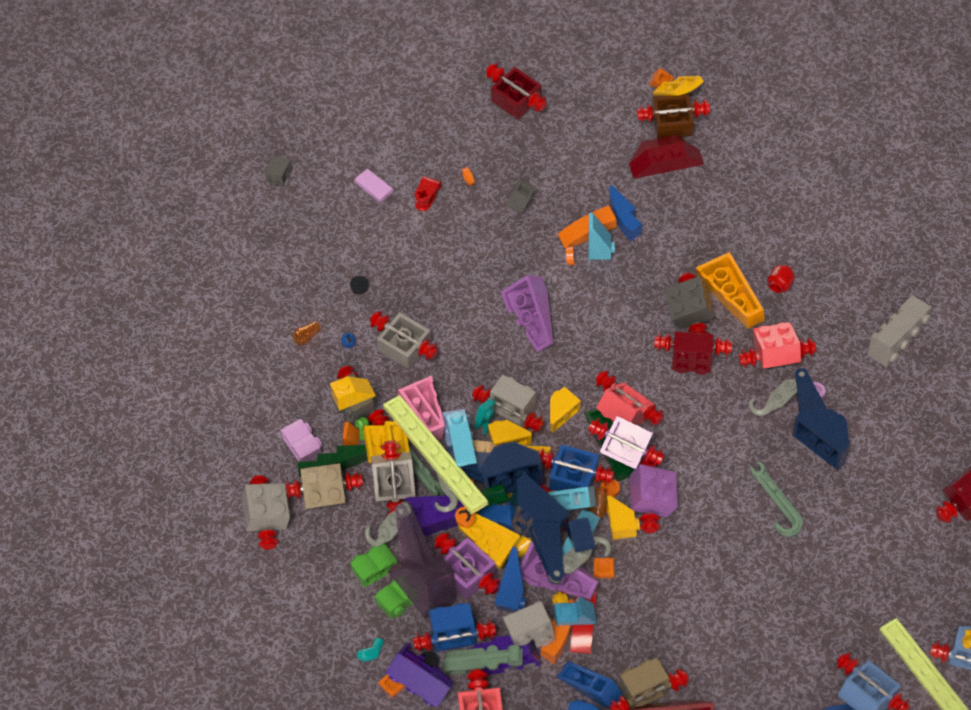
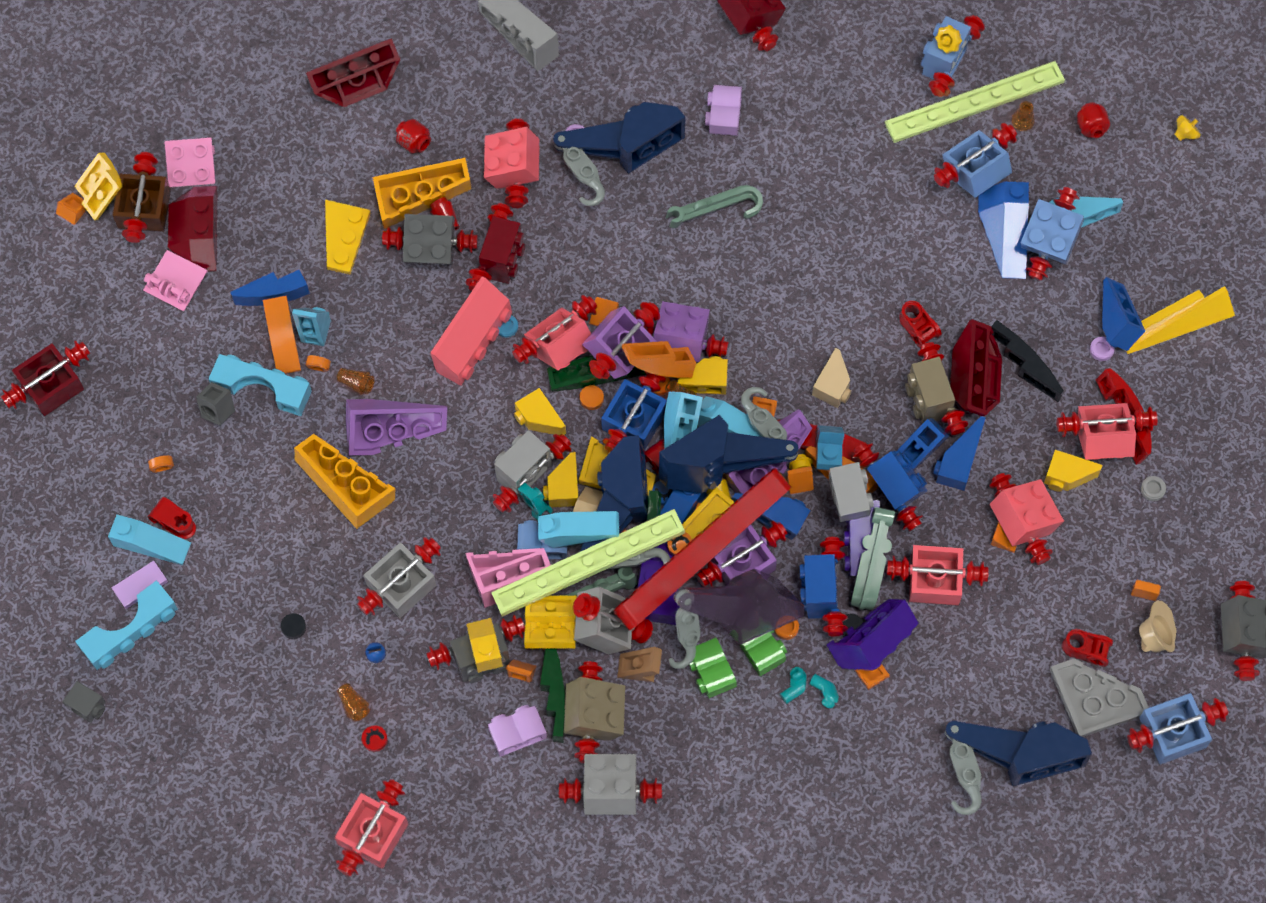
camera: 80 degrees left, 10 degrees up
(207, 359) = (371, 829): none -> coral brick
(281, 353) = (374, 738): none -> red tile
(355, 195) = (103, 645): none -> medium azure arch
(360, 423) = (517, 649): bright green arm -> none
(367, 515) = (640, 664): none -> medium nougat slope
(371, 630) = (797, 685): none -> teal arm
(406, 181) = (148, 540): none -> medium azure slope
(417, 618) = (788, 631): none -> orange tile
(462, 529) = (702, 549): none -> red beam
(475, 289) = (345, 483): none -> light orange wedge
(541, 240) = (235, 374): none -> medium azure arch
(547, 600) = (800, 480): none -> orange slope
(554, 667) = (896, 480): none -> blue brick
(562, 285) = (357, 380): none -> clear orange cone
(580, 534) = (743, 411): dark blue slope -> none
(586, 443) = (591, 397): none -> orange tile
(616, 470) = (661, 359): none -> orange slope
(617, 152) = (174, 280): none -> bright pink hinge
(617, 345) = (471, 332): none -> coral slope
(634, 374) = (509, 328): none -> dark azure tile
(640, 613) = (833, 381): none -> tan slope
(661, 439) = (603, 308): none -> orange slope
(686, 251) = (344, 234): none -> yellow wing
(705, 673) = (920, 328): none -> red piece
(717, 141) = (190, 162): none -> bright pink hinge
(721, 311) = (444, 208): none -> red cone
(820, 226) = (356, 74): none -> dark red wedge
(869, 492) = (725, 110): none -> lavender brick

